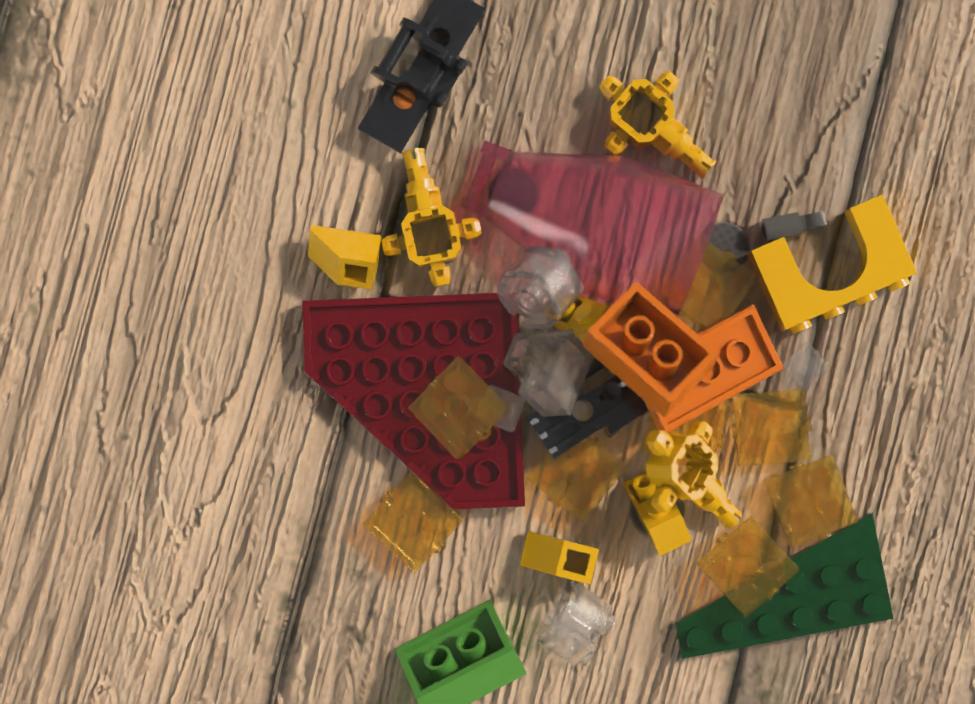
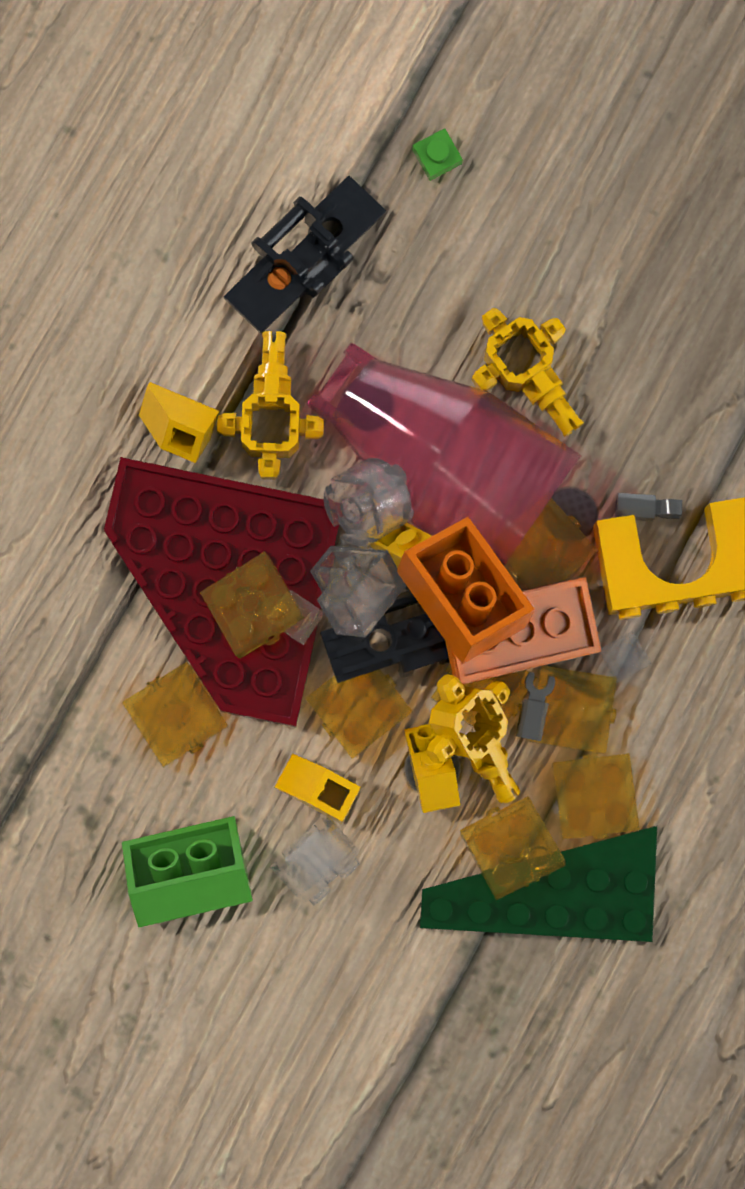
camera: 10 degrees right, 5 degrees down
(737, 437) = (534, 709): none -> dark grey bar

